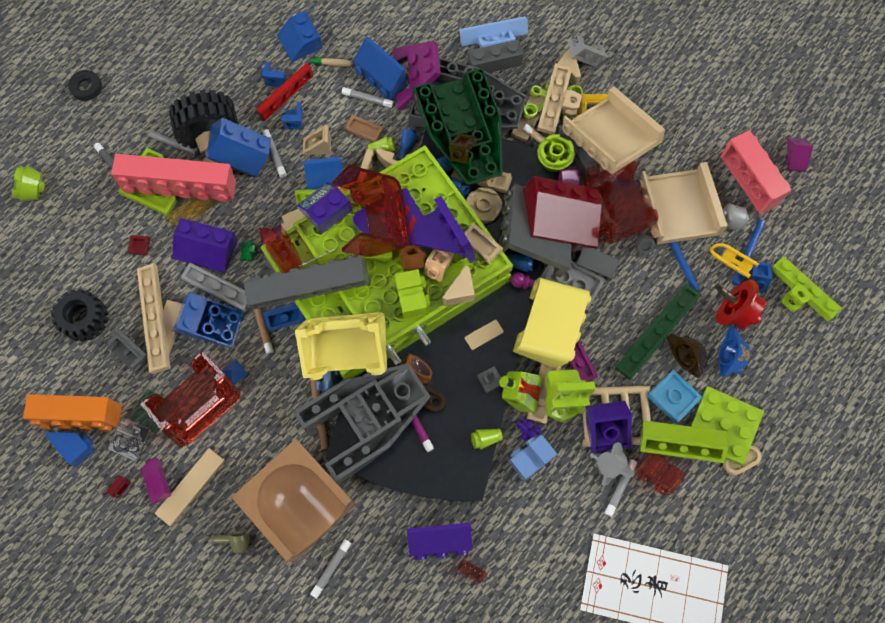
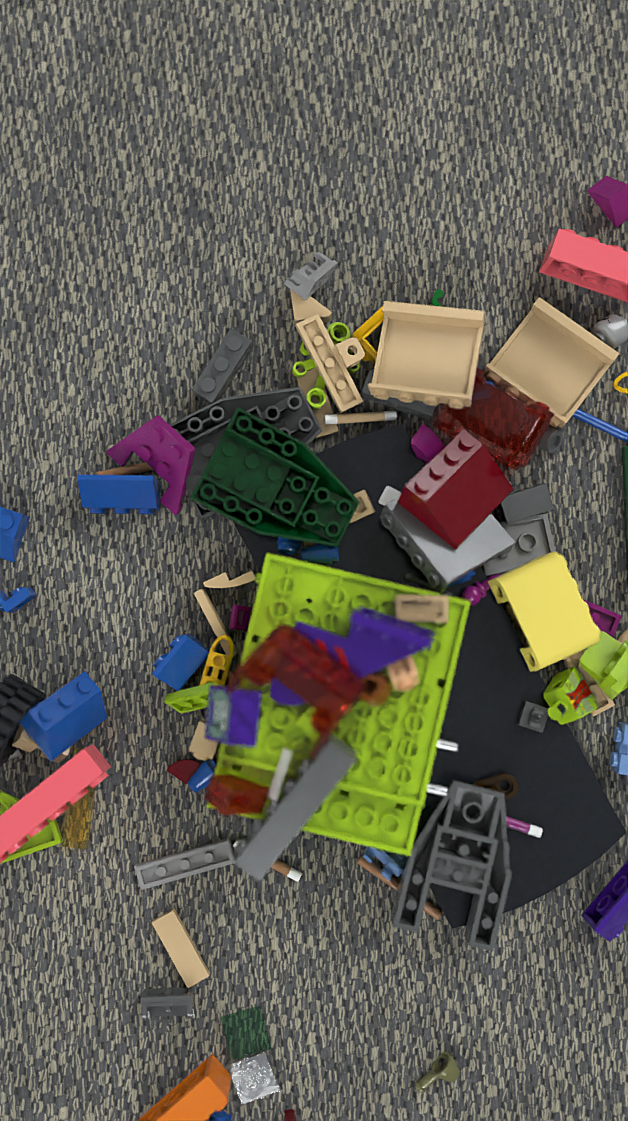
camera: 45 degrees left, 15 degrees up
(70, 305) = (75, 1035): black tyre -> none
(138, 245) = (65, 895): dark red tile -> none
(153, 319) = (158, 952): tan tile -> none
(155, 481) = (318, 1090): magenta slope -> none
(190, 487) = (352, 1064): tan tile -> none
(193, 403) = (277, 995): clear red windscreen -> none
(203, 245) = (130, 838): dark purple slope -> none
(208, 320) = (212, 905): blue slope -> none
(234, 372) = (285, 926): blue slope -> none
(247, 251) = (178, 802): green plant -> none
(275, 156) = (100, 678): bar -> none
(284, 92) = (45, 605): red tile -> none
(293, 118) = (81, 623): blue panel -> none
(293, 501) = (465, 997): medium nougat piece -> none
(318, 142) = (133, 629): tan slope -> none
(330, 568) = (546, 1011): light grey bar -> none
(331, 62) = (43, 535): tan piece -> none
(342, 344) = (385, 830): light yellow windscreen -> none
(364, 129) = (163, 568): medium nougat tile -> none
(367, 97) = (132, 530): light grey bar -> none
(384, 143) = (202, 570): lime cone -> none
(407, 140) = (220, 541): blue cone -> none
(411, 293) = (406, 725): lime brick -> none
(420, 368) = (459, 770): rock -> none
(460, 146) = (299, 516): dark brown bracket -> none
(461, 289) = (449, 677): tan slope -> none
(484, 334) = (486, 677): tan sticker -> none
(485, 204) = (365, 546): tan tile -> none
(485, 437) = (580, 776): lime cone -> none
(494, 32) = (197, 341): light blue bracket -> none
(528, 428) = (605, 725): dark purple plant -> none
(556, 153) = (390, 429): lime cone -> none

